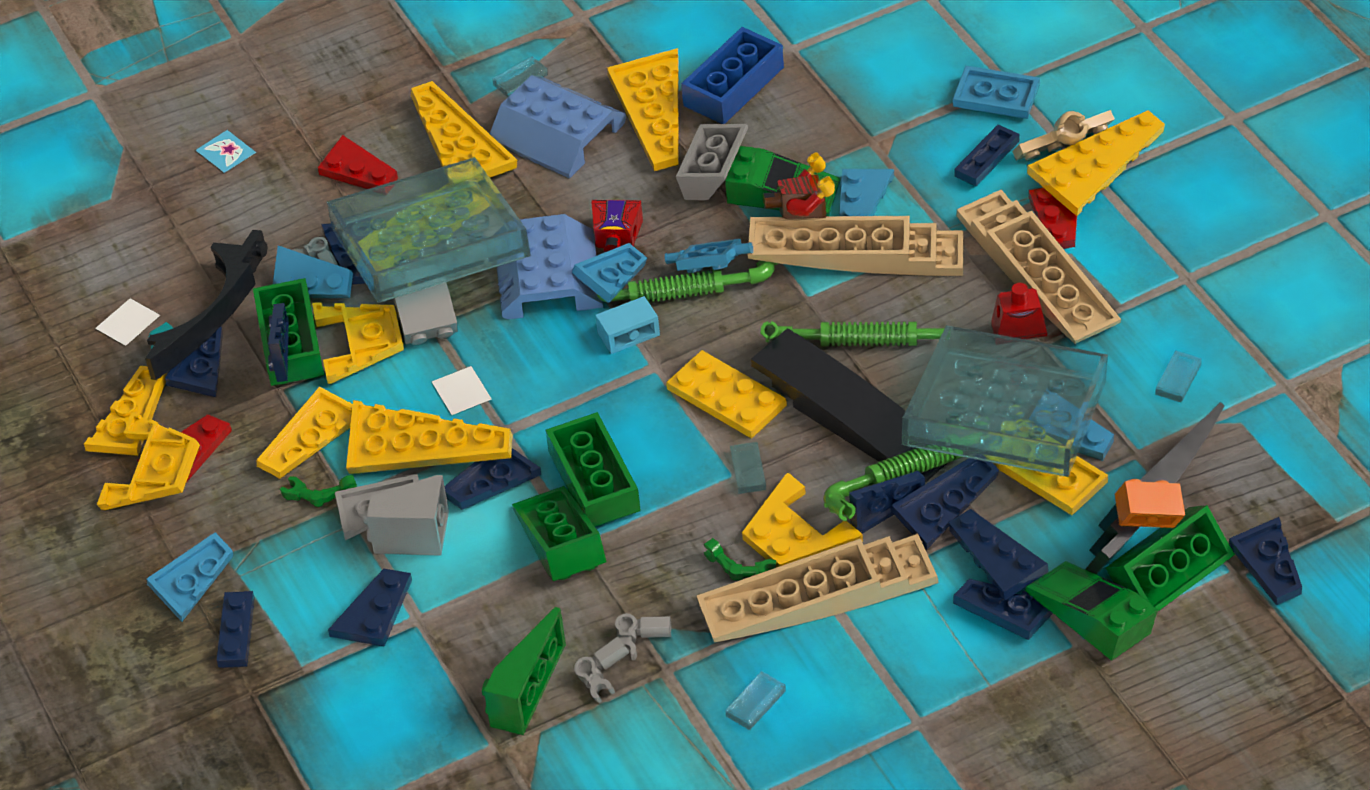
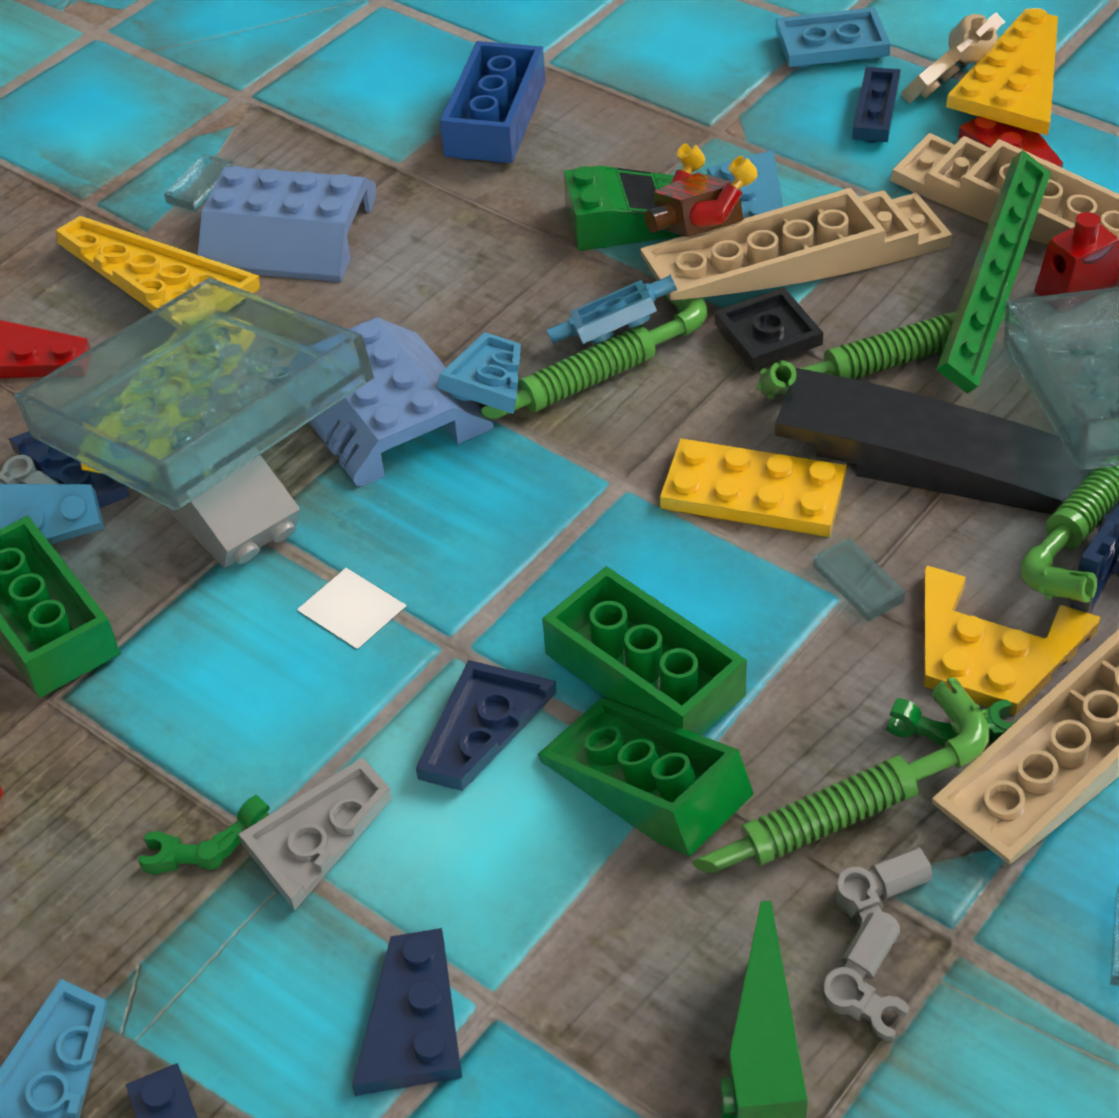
camera: 25 degrees left, 0 degrees up
(279, 342) = (36, 622): dark blue wing -> none
(311, 429) = (140, 750): yellow wing -> none
(371, 335) = (166, 569): yellow wing -> none
(408, 518) = (396, 836): light grey slope -> none
(412, 439) = (325, 705): yellow wing -> none
(616, 222) = (446, 313): red torso -> none
(627, 325) = (552, 437): medium azure brick -> none
(651, 101) = (404, 164): yellow wing -> none
(660, 580) = (860, 794): none -> bright green piece
(709, 159) = (538, 198): light grey slope -> none
(802, 295) = (768, 328): none -> black plate
(955, 302) = (994, 273): none -> green plate

